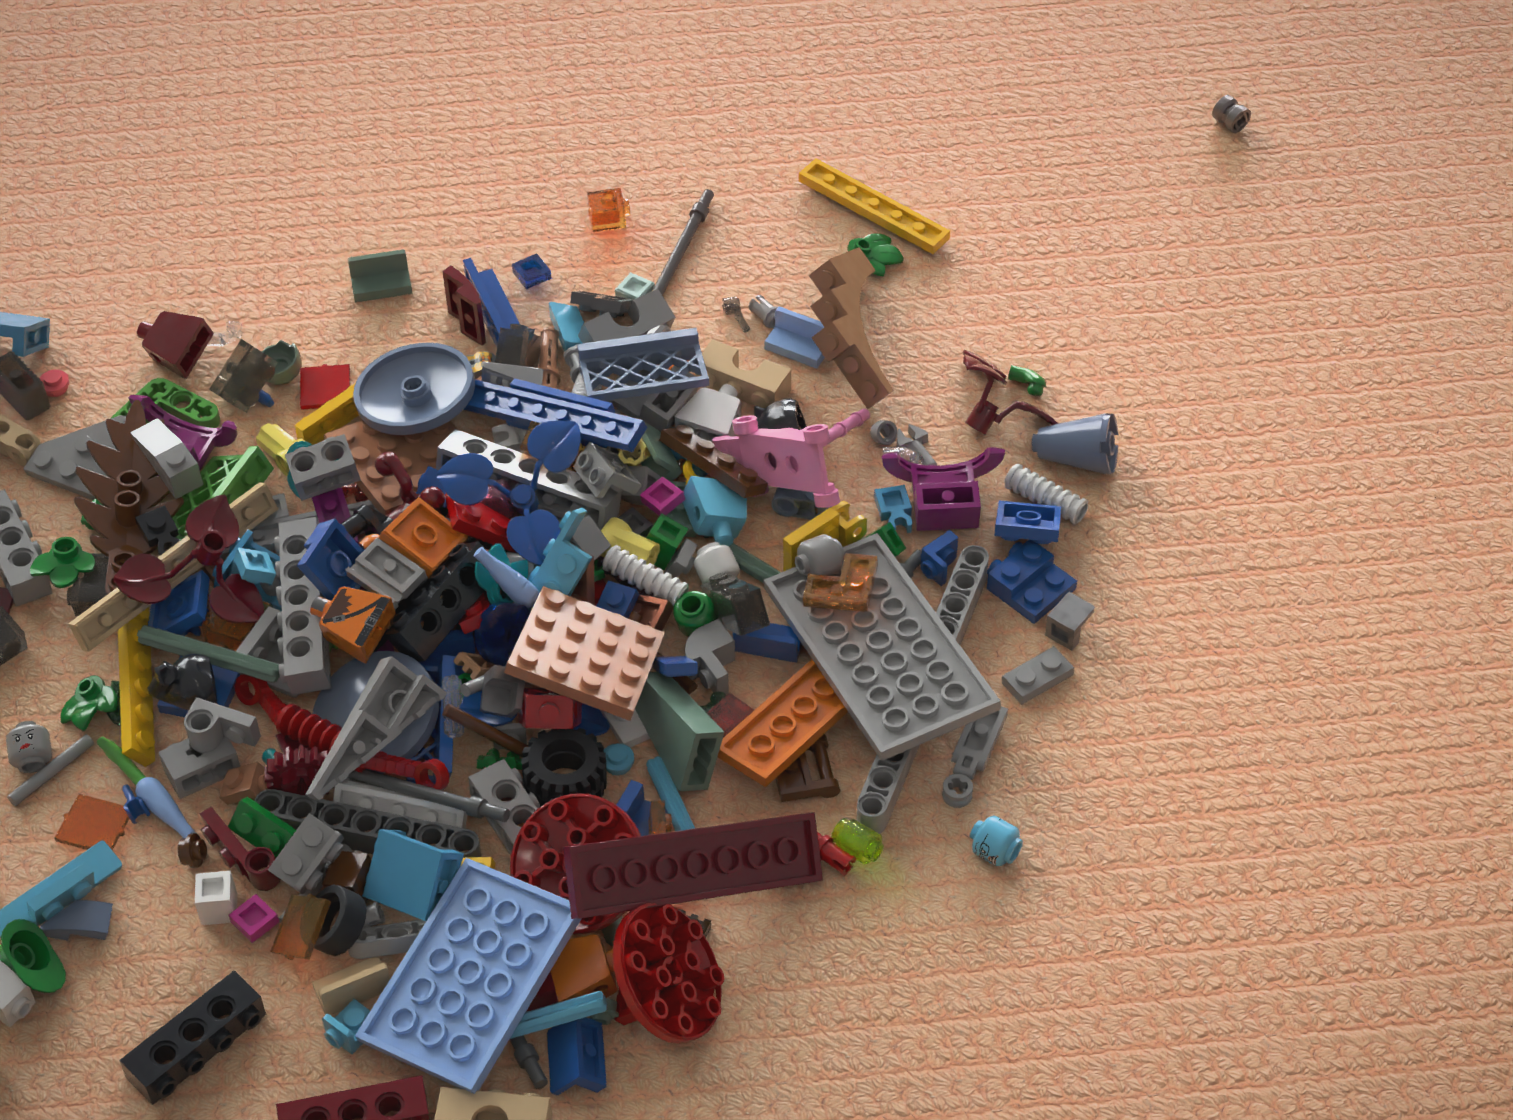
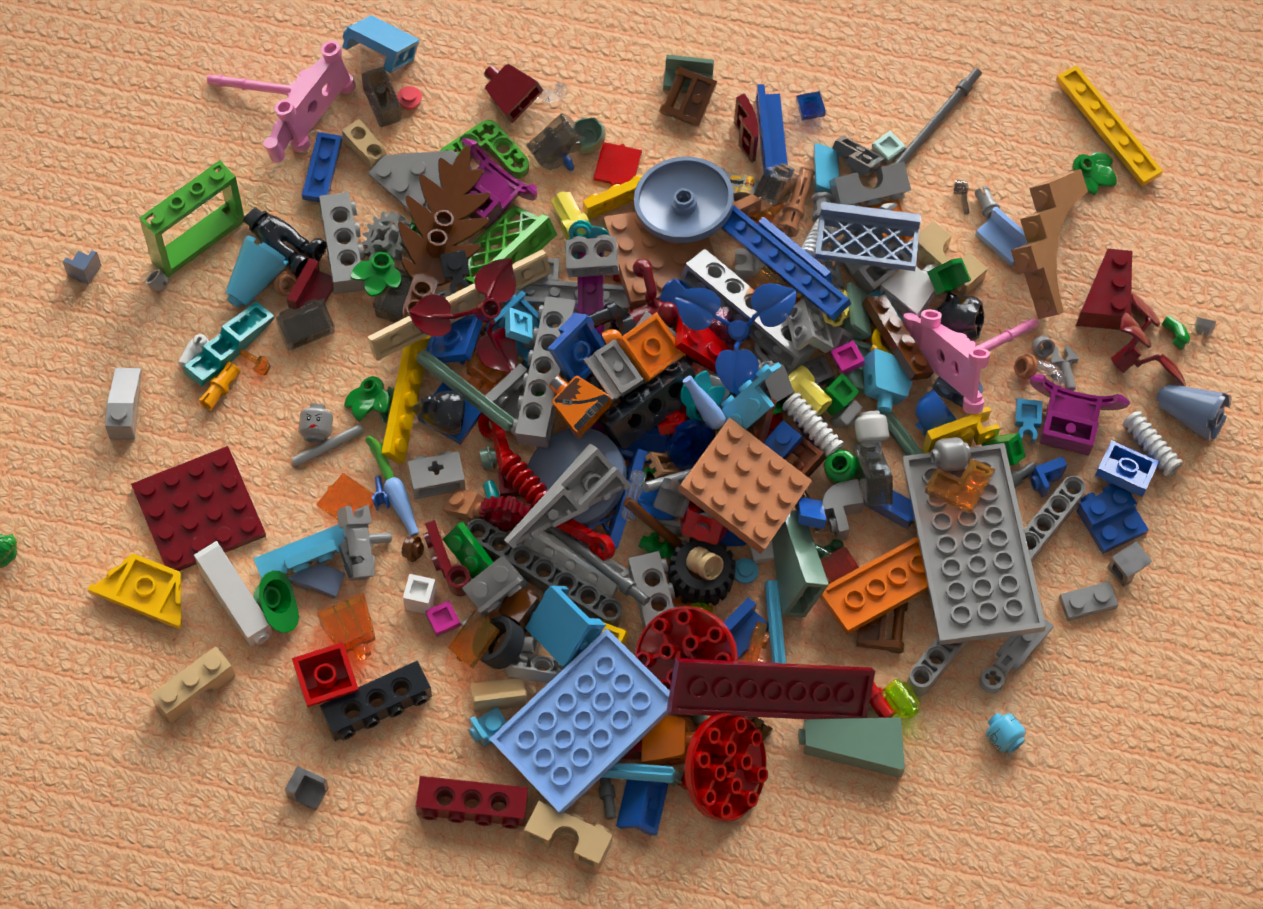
camera: 15 degrees right, 15 degrees up
(63, 521) = (385, 236): none -> light grey gear
(115, 1020) = (325, 674): none -> red slope
(119, 862) = (358, 542): none -> light grey piece
(133, 961) = (349, 624): none -> clear orange torso
(168, 457) = (477, 207): light grey slope -> none
(210, 723) = (459, 454): light grey plate -> none
(264, 724) = (488, 458): none -> sand green plate
(396, 296) = (695, 100): none -> reddish brown plate
(504, 373) = (759, 210): light grey slope -> none
(564, 752) = (704, 563): none -> tan wheel
(607, 209) = (890, 64): clear orange brick -> none
(750, 384) = (949, 276): none -> green panel
(778, 522) = (932, 412): none -> blue cylinder
(820, 905) = (857, 742): none -> sand green slope
(871, 456) = (1026, 366): none -> nougat plate
(939, 360) = (1109, 292): none -> dark red wedge
(1057, 363) = (1204, 325): none -> light grey hinge

